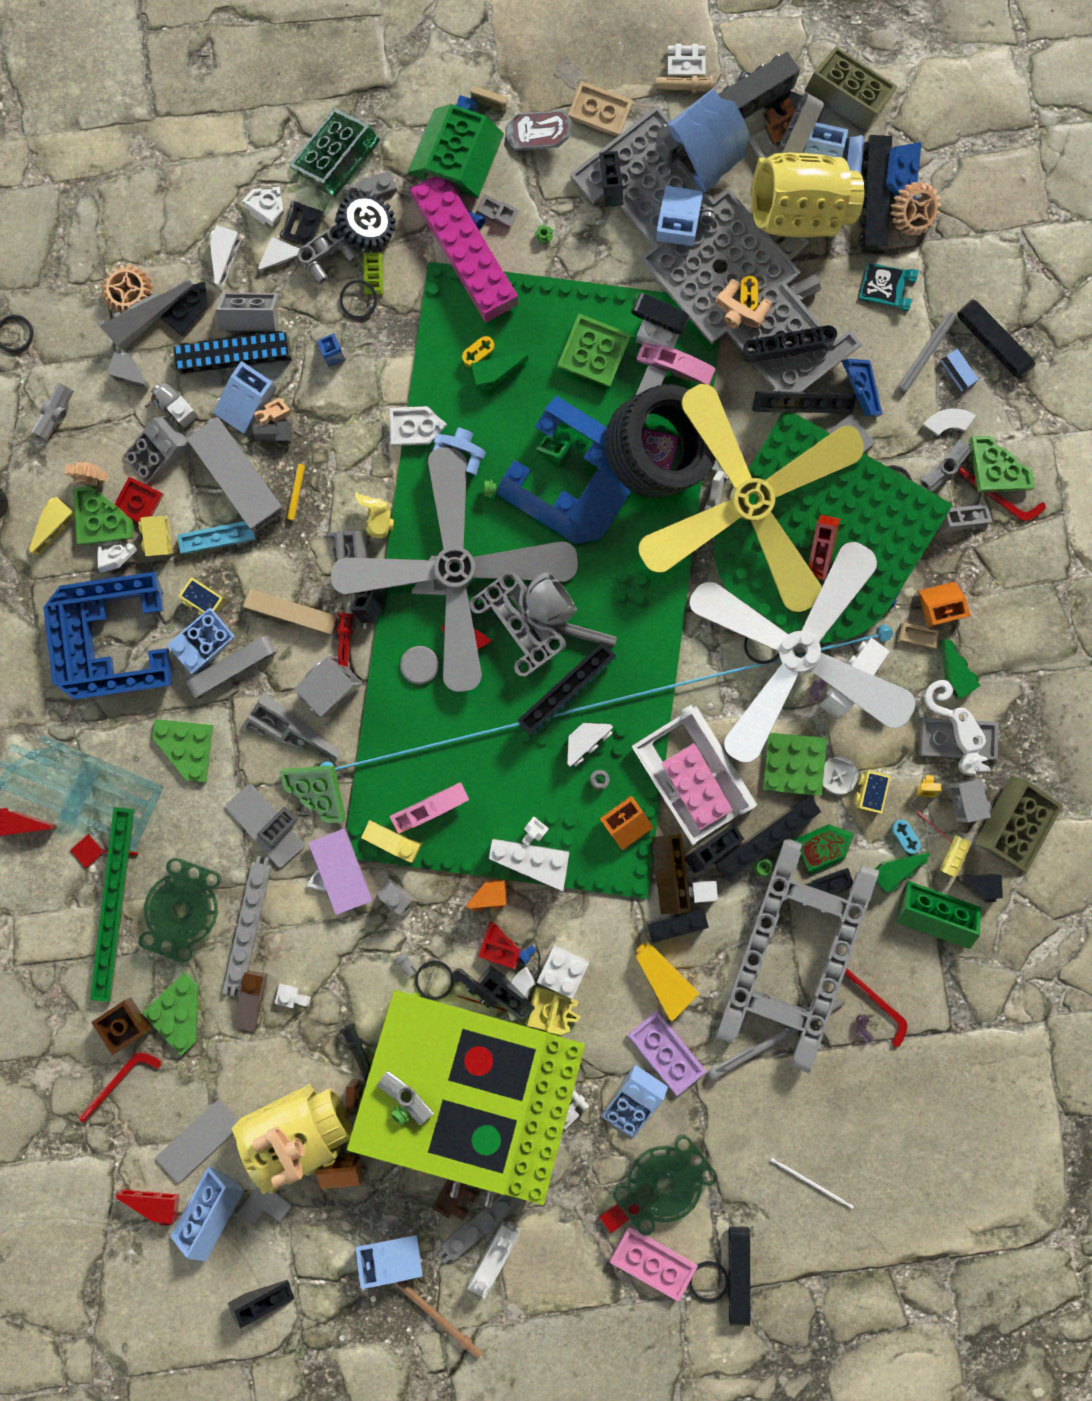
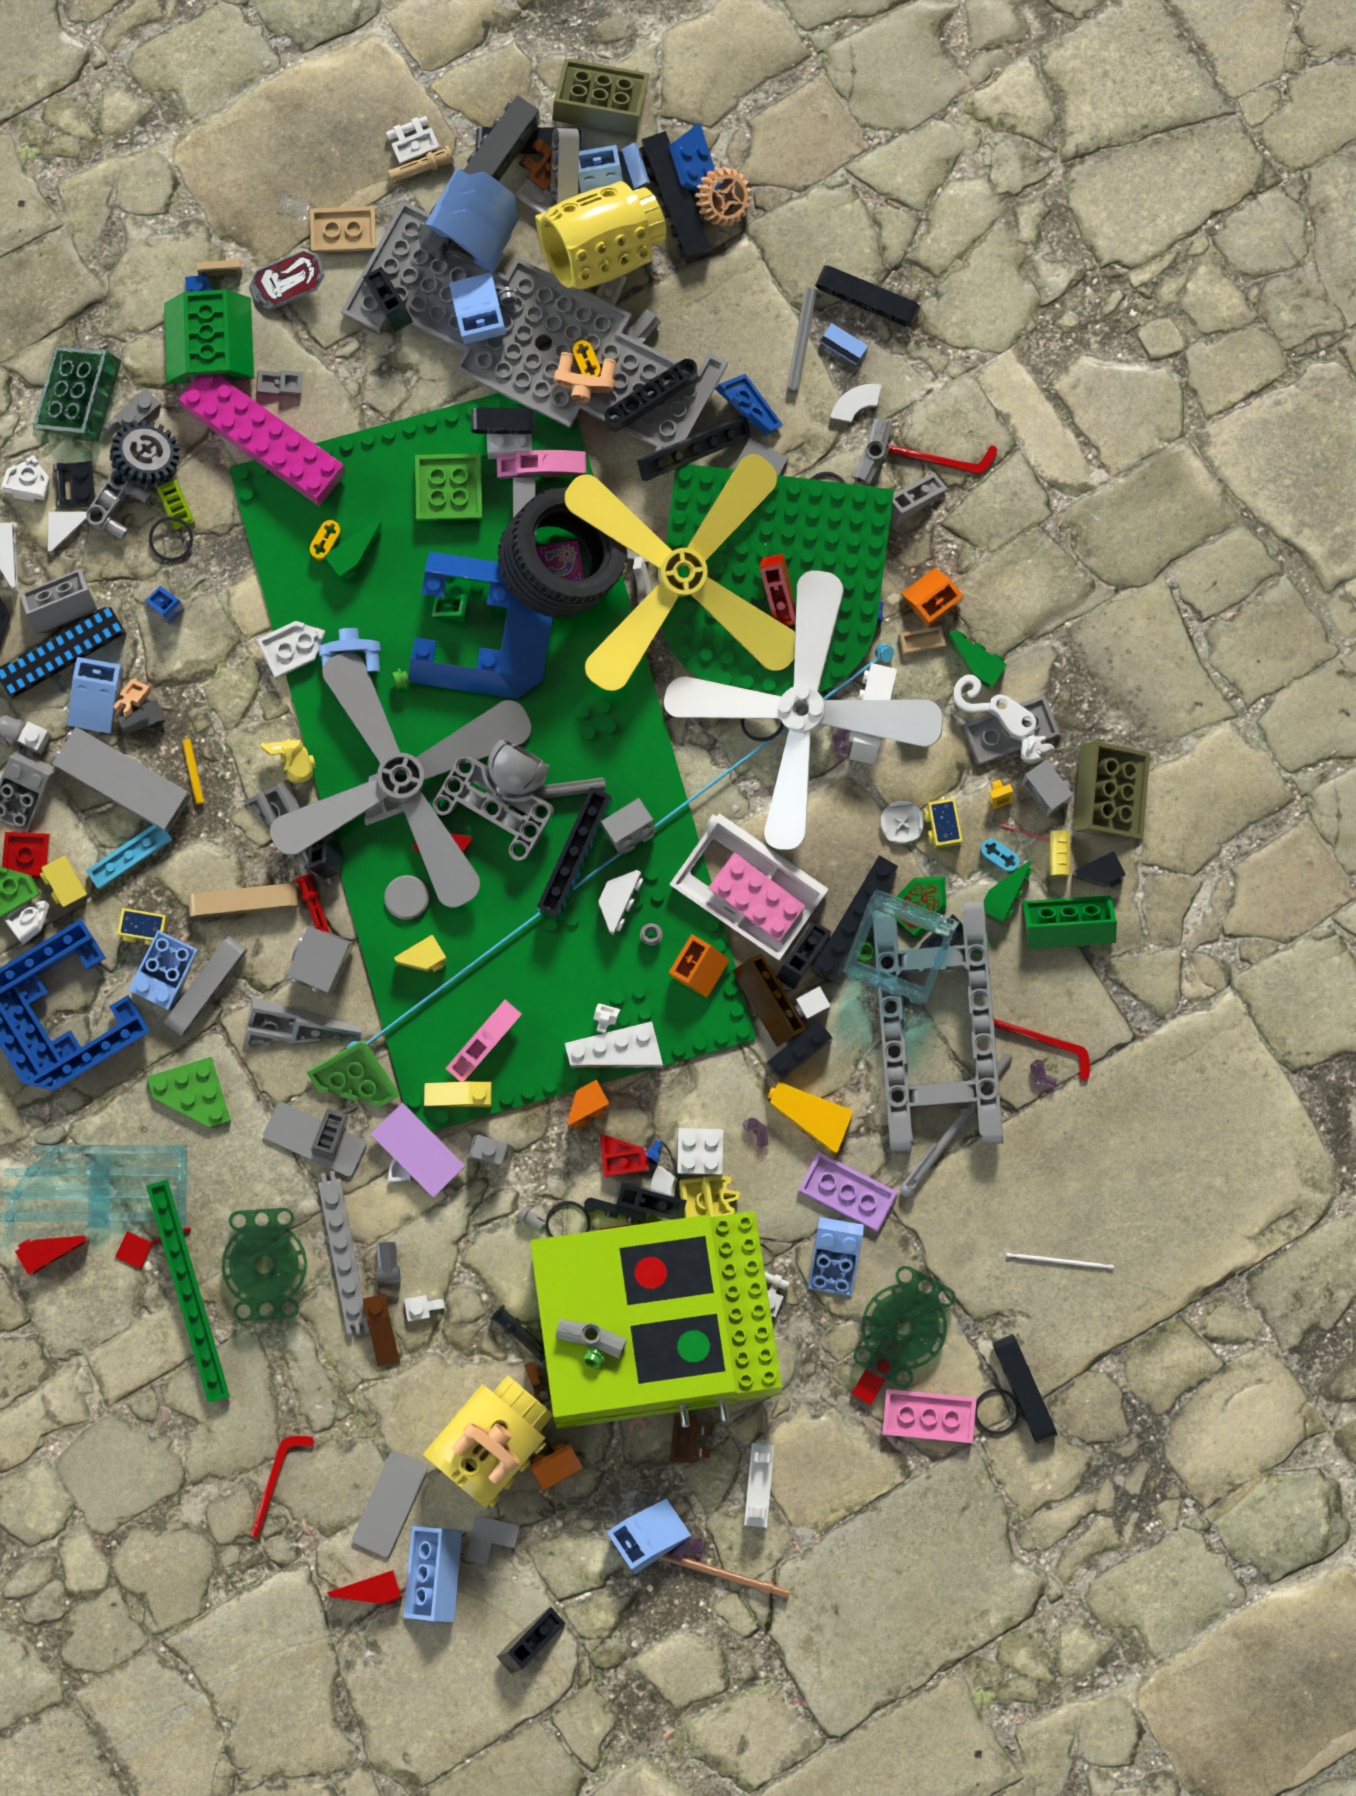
camera: 30 degrees left, 5 degrees down
(121, 1026) = (254, 1414): reddish brown brick -> none
(176, 1013) = (307, 1378): bright green plate -> none
(276, 955) = (387, 1271): none -> dark grey piece
(413, 718) = (423, 956): none -> light yellow slope
(420, 1282) = (689, 1545): none -> clear purple arm
(478, 219) = (263, 400): blue piece -> none
(479, 1226) = (732, 1451): light grey hinge -> none
(544, 239) = (340, 392): bright green plate -> none
(617, 971) = (757, 1128): none -> arm
(619, 687) = (629, 827): none -> light grey brick
(795, 764) = (850, 830): bright green plate -> none
(818, 861) = (912, 914): none -> clear light blue windscreen
(886, 284) = (728, 288): flag -> none
(997, 467) = (928, 430): bright green plate -> none

